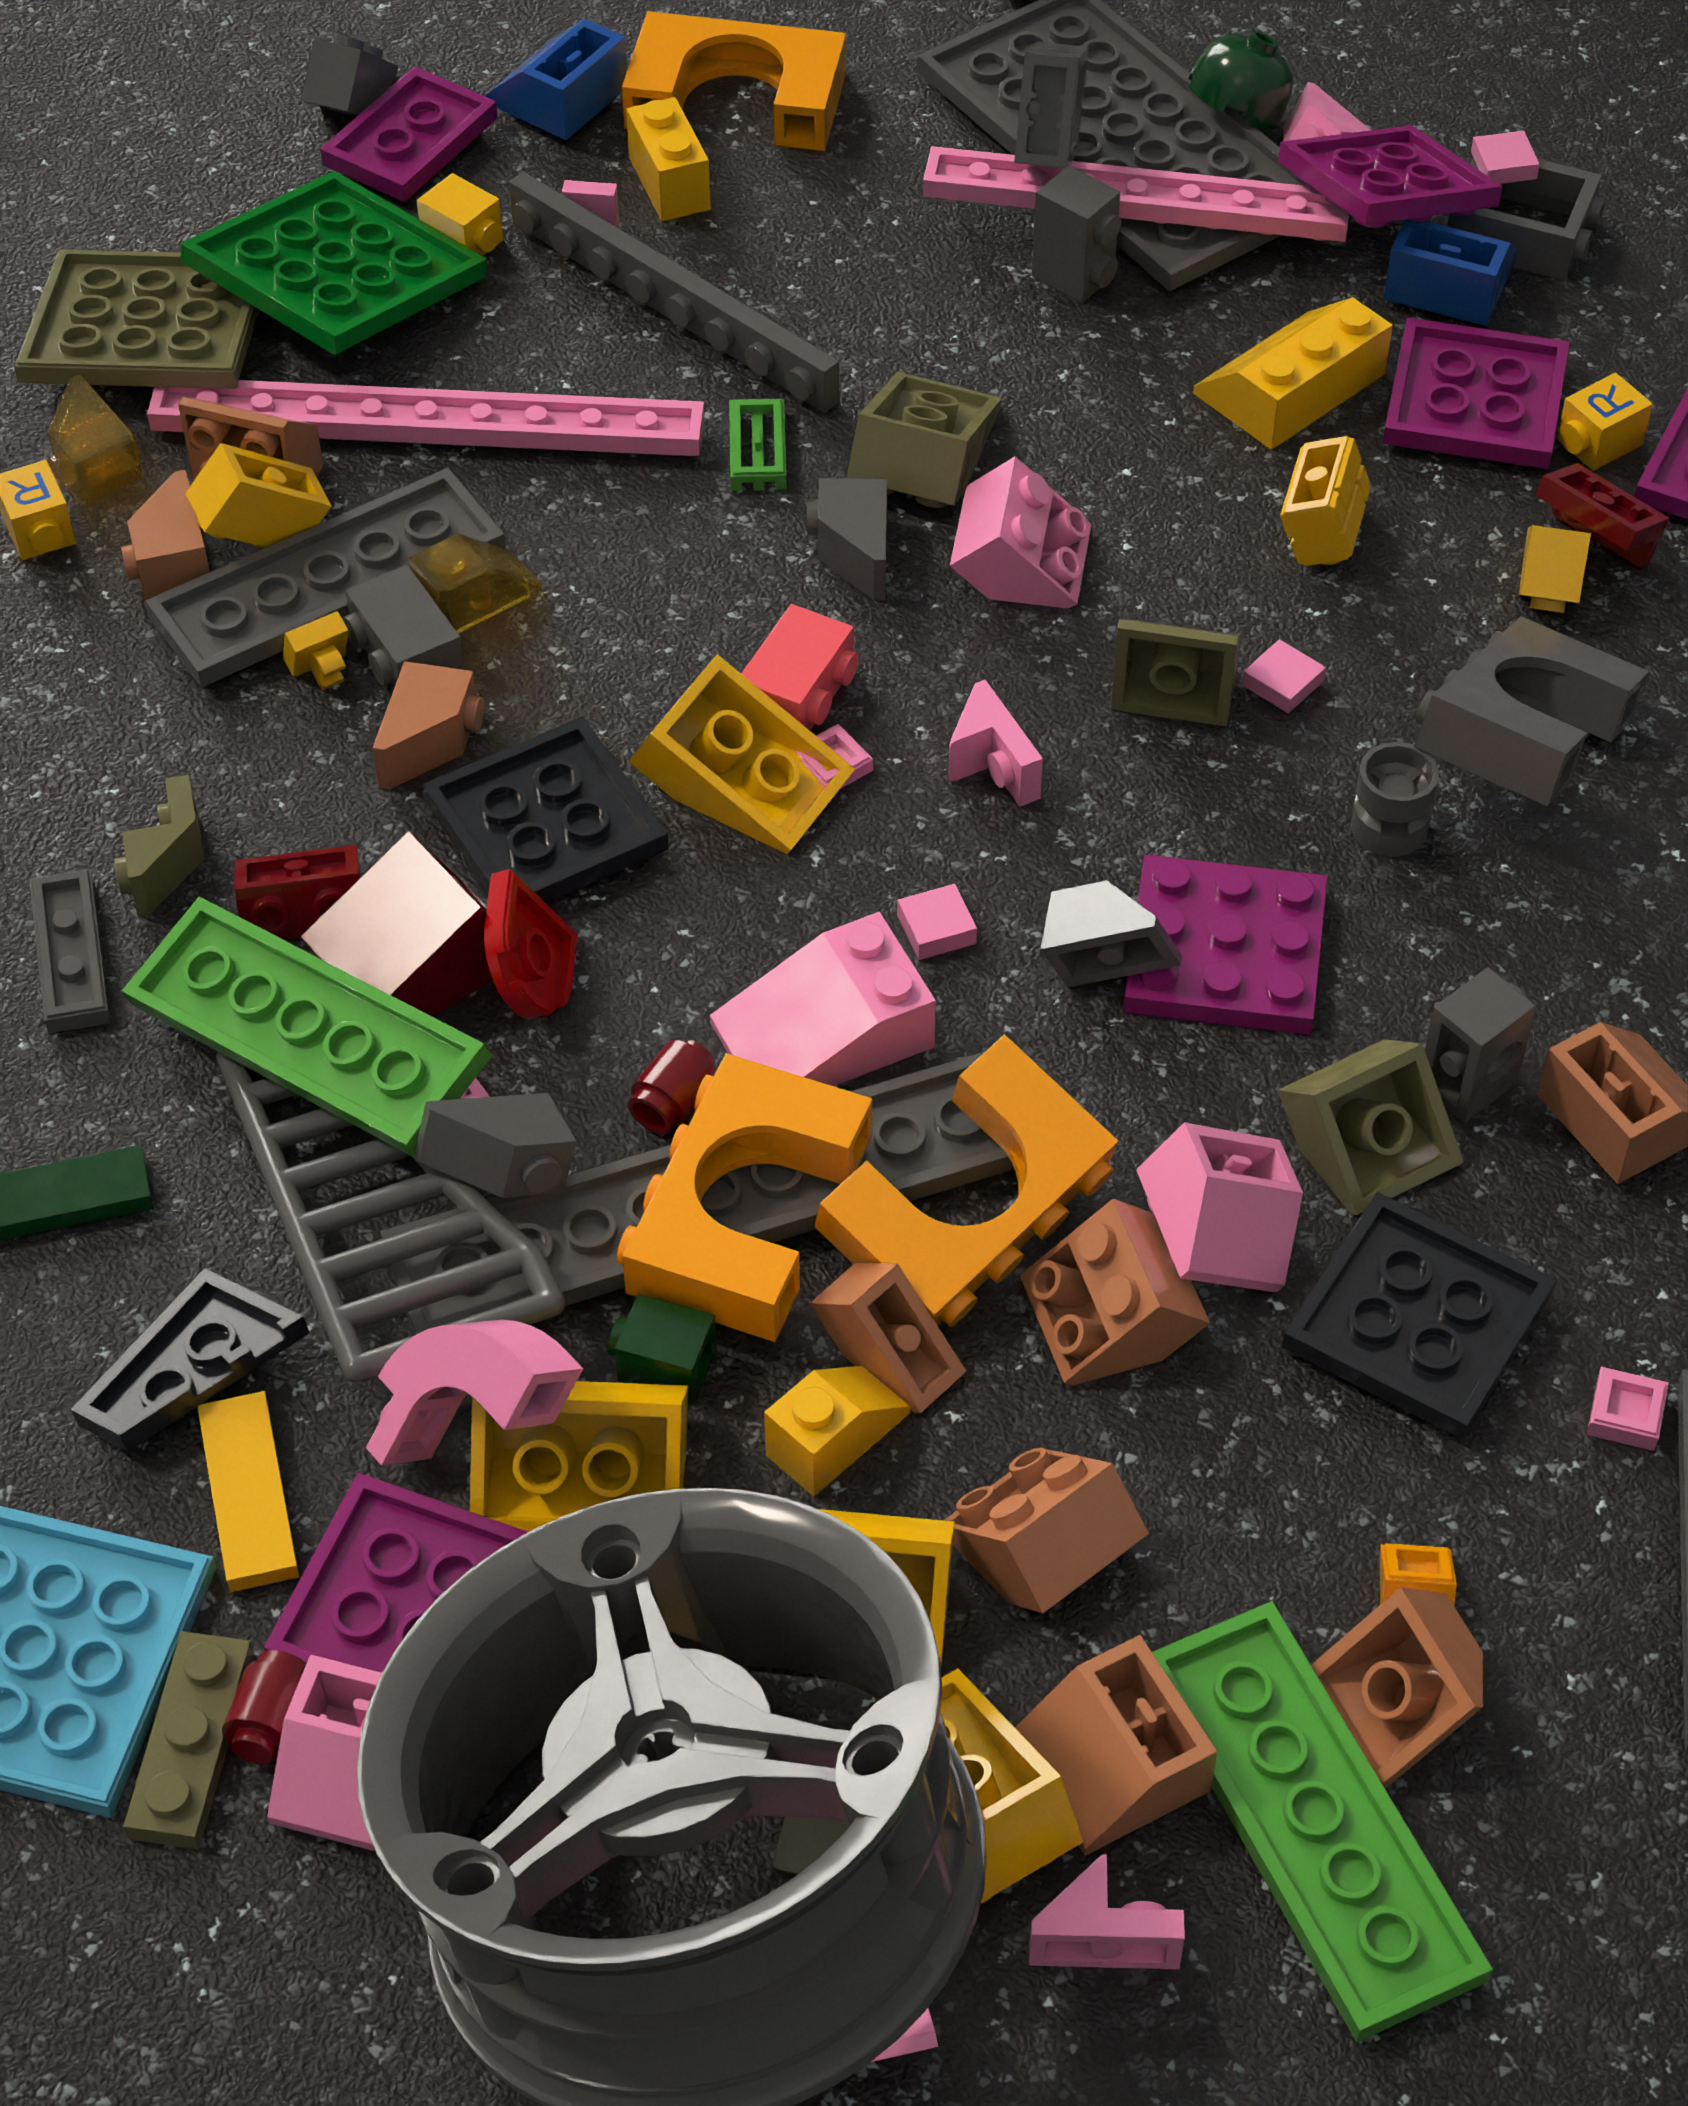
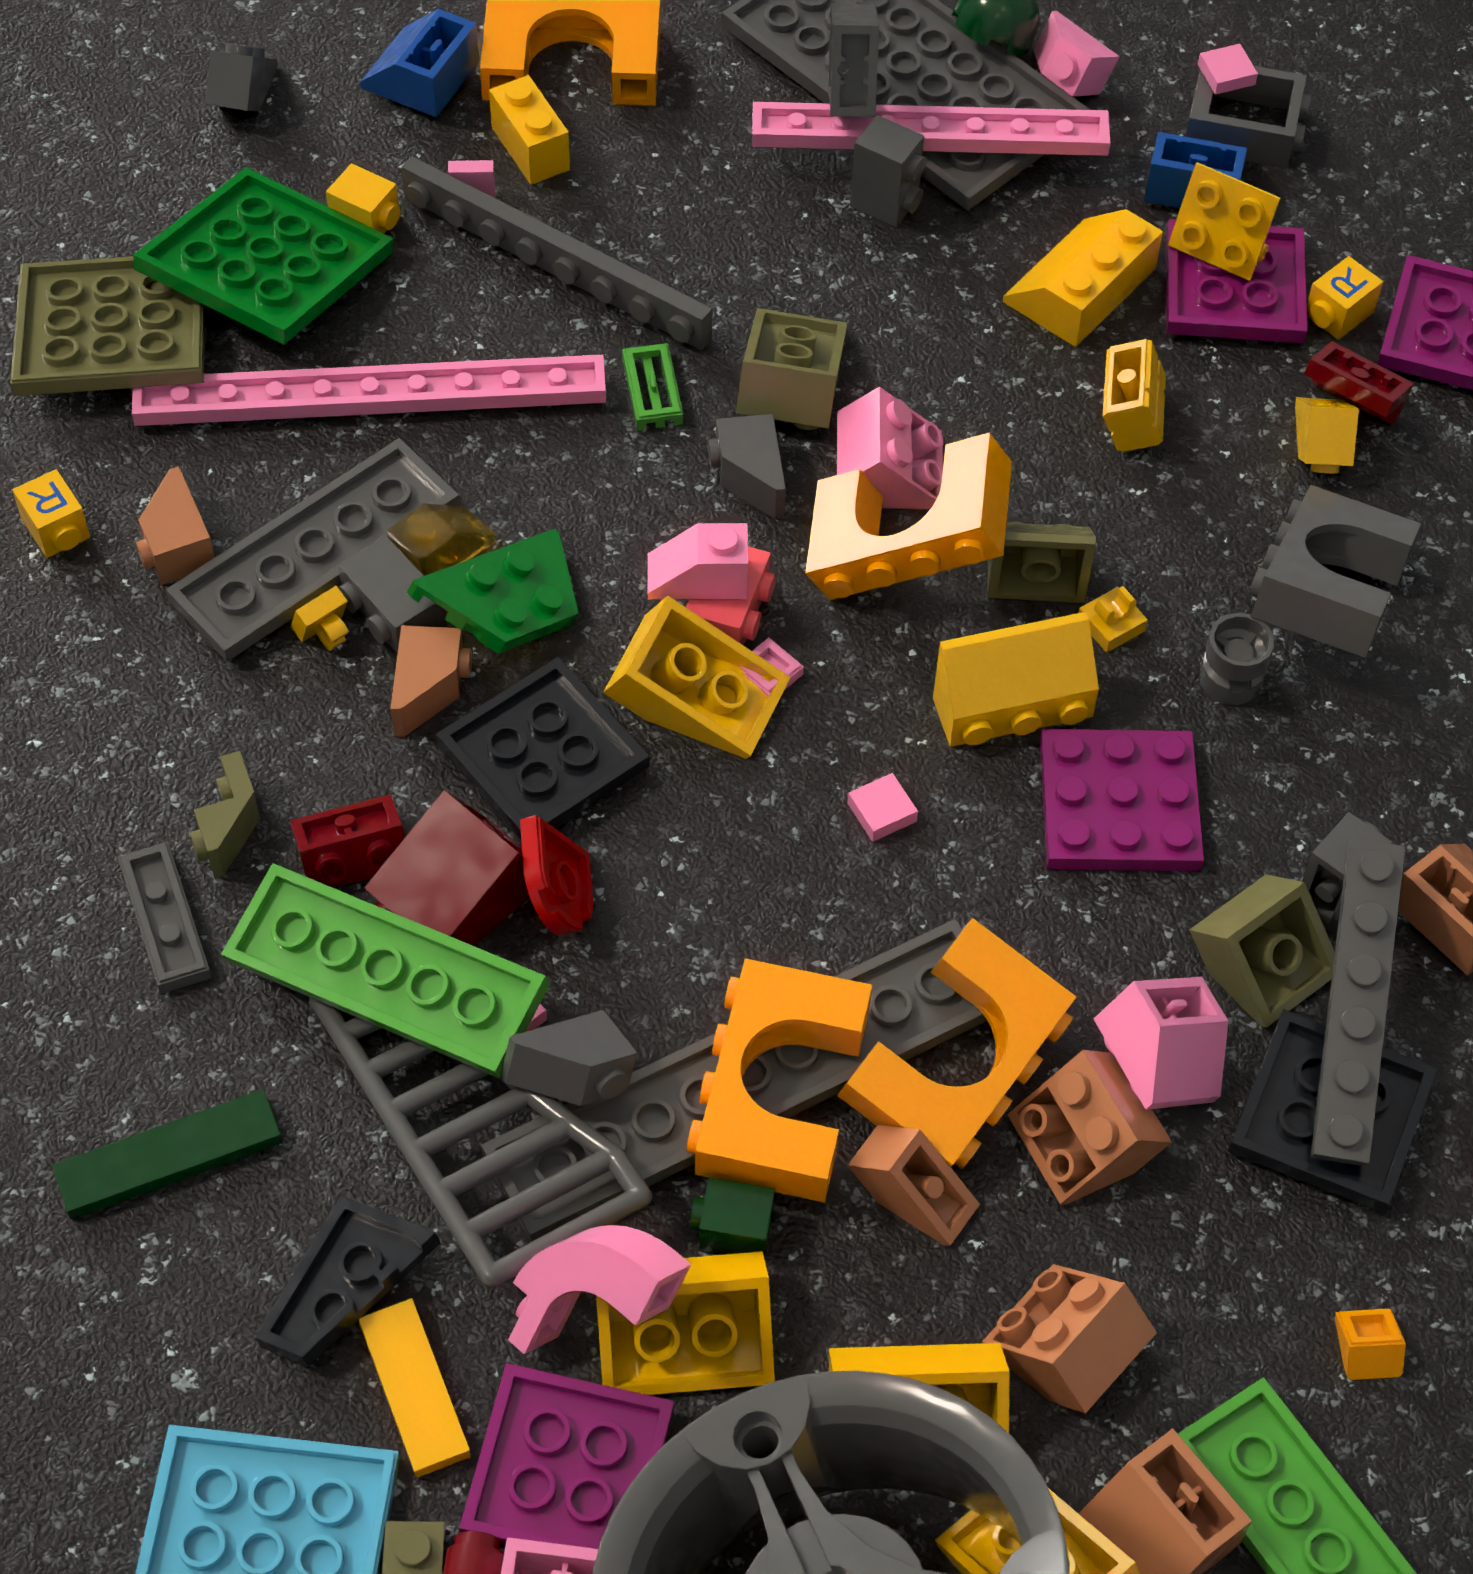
camera: 10 degrees left, 5 degrees up
(91, 444) = (88, 446): clear yellow slope -> none
(213, 423) = (228, 442): nougat slope -> none
(255, 497) = (246, 487): yellow brick -> none
(409, 133) = (302, 125): magenta plate -> none
(534, 641) = (506, 593): none -> green wing
(669, 1086) = (696, 983): dark red brick -> none
(767, 625) = (701, 564): none -> bright pink slope
(829, 1423) = (882, 1267): yellow slope -> none
(833, 1007) = (813, 900): bright pink slope -> none
(993, 740) = (904, 640): bright pink slope -> none
(1080, 609) = (957, 531): none -> light orange arch
(1103, 935) = (1025, 808): dark grey slope -> none
(1120, 791) = (1016, 680): none -> yellow slope
(1256, 745) = (1114, 618): none -> yellow tile
(1283, 676) = (1124, 553): bright pink tile -> none
(1389, 175) = (1138, 95): magenta plate -> none
(1404, 1679) = (1381, 1433): nougat slope -> none
(1461, 1184) = (1358, 1003): none -> dark grey plate
(1466, 318) = (1224, 221): none -> yellow hinge

